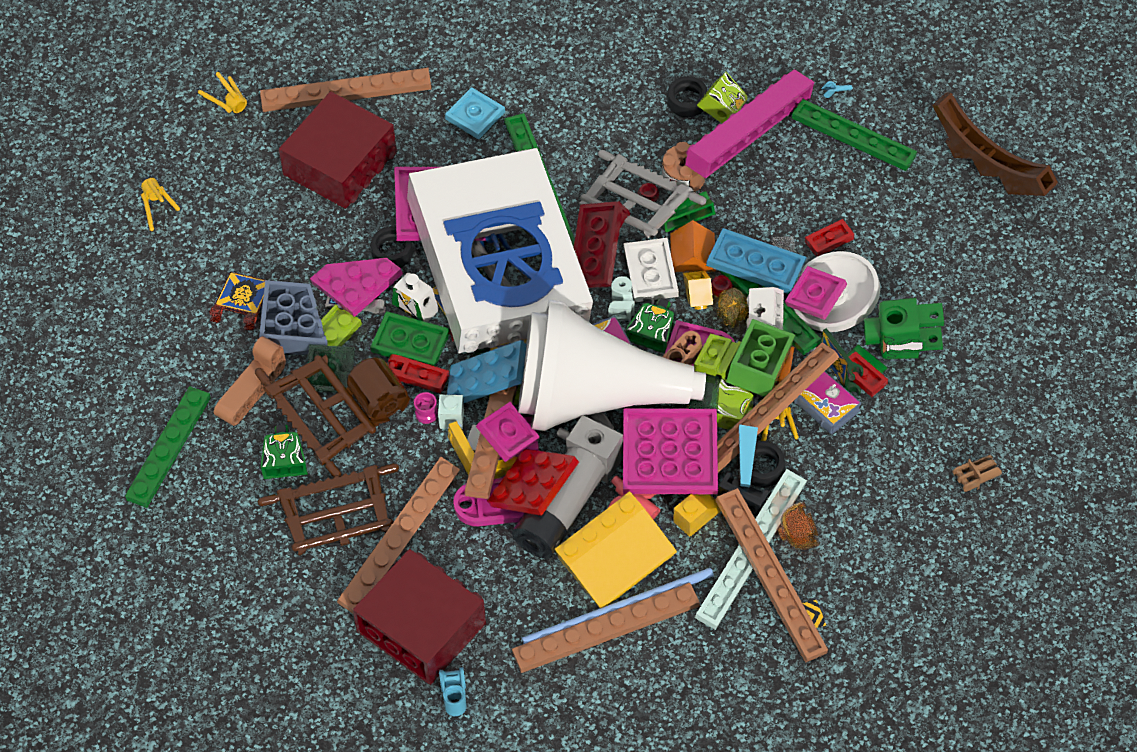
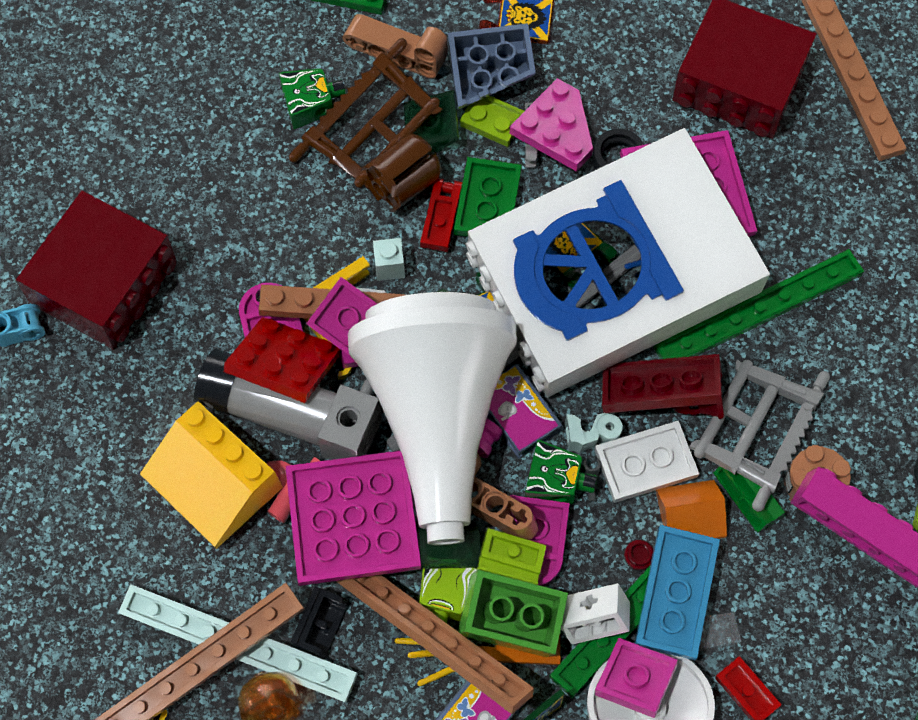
camera: 80 degrees right, 10 degrees up
(294, 521) = (261, 203): reddish brown piece -> none
(399, 533) = (219, 235): nougat plate -> none
(415, 298) = (544, 179): white torso -> none
(425, 408) = (392, 225): dark pink wheel -> none
(475, 113) = (848, 213): medium azure plate -> none
(488, 372) = (434, 271): dark azure plate -> none
(605, 627) = (116, 486): nougat plate -> none
(649, 191) = (769, 441): dark red plate -> none
(693, 578) = (146, 496): light blue piece -> none
(695, 512) = (279, 565): yellow slope -> none
(698, 289) = (626, 523): slope -> none
(732, 306) = (602, 569): clear yellow head -> none
(747, 445) = (367, 611): medium azure piece -> none
(771, 478) = (354, 621): black tyre -> none

